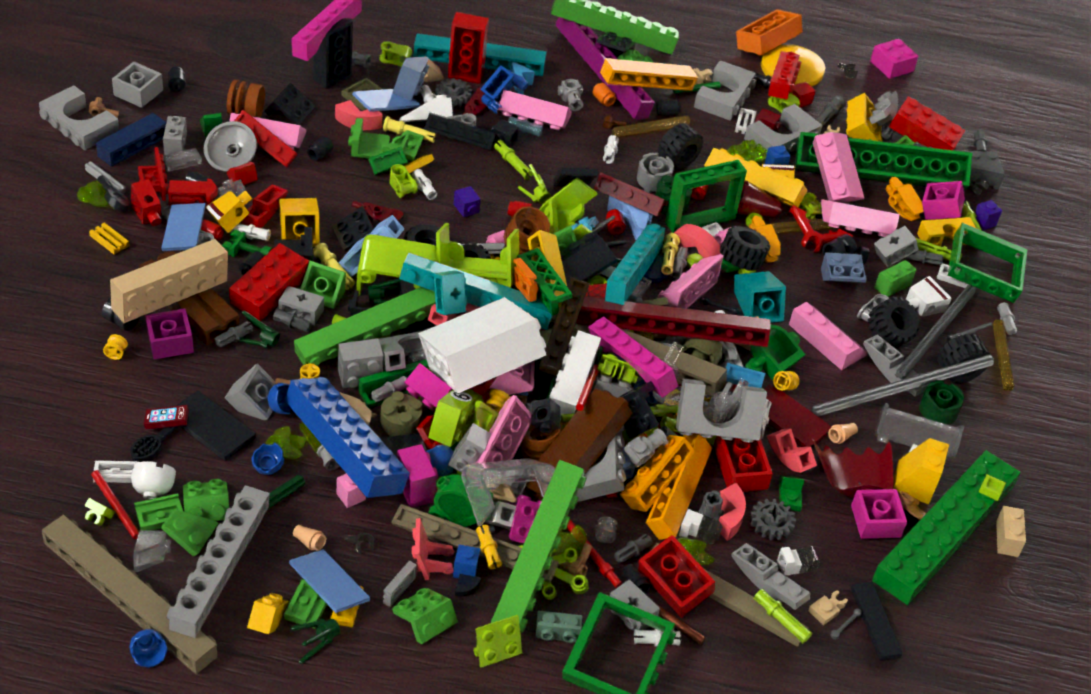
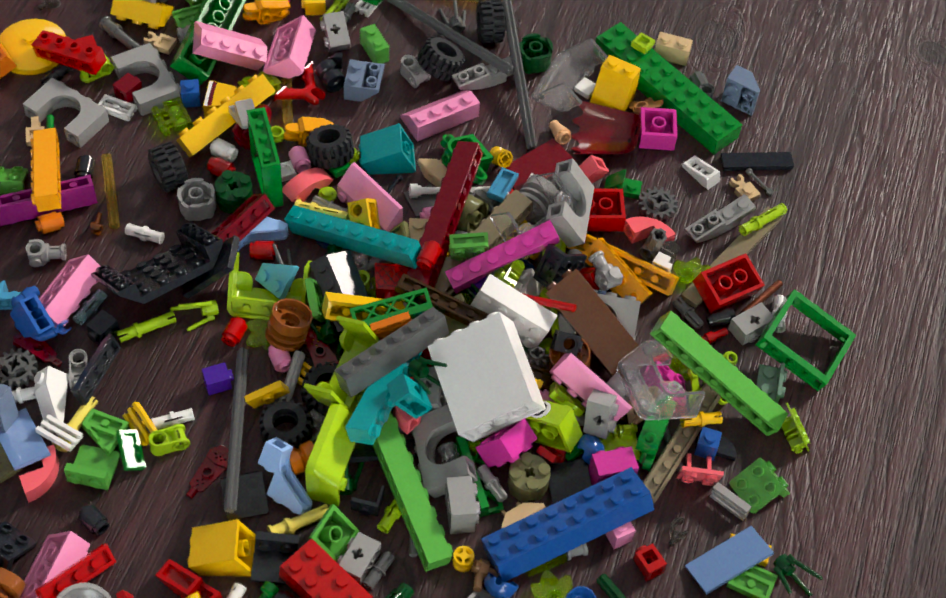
camera: 80 degrees left, 10 degrees up
(311, 538) = (676, 572): light nougat cone -> none
(320, 513) = (652, 555): none -> red brick
(392, 104) = (77, 436): none -> white tile
(417, 213) = (236, 431): none -> dark grey axle
(456, 231) = (267, 394): none -> yellow plate
(481, 300) = (419, 369): none -> dark green plant
(495, 276) = (391, 352): none -> dark grey brick
(543, 133) = (166, 270): none -> black slope
(617, 300) = (429, 255): none -> red brick
(644, 333) = (468, 245): none -> bright green bracket
(665, 276) = (369, 212): none -> yellow brick
(720, 189) = (223, 150): none -> white brick
(754, 176) = (239, 111): none -> light grey slope
(798, 560) = (700, 196): leg -> none
(835, 566) = (707, 180): none -> white slope
(928, 297) = (400, 29): white torso -> none
(963, 561) = (700, 81): none -> dark grey piece
(971, 592) = (741, 90): none -> sand blue slope

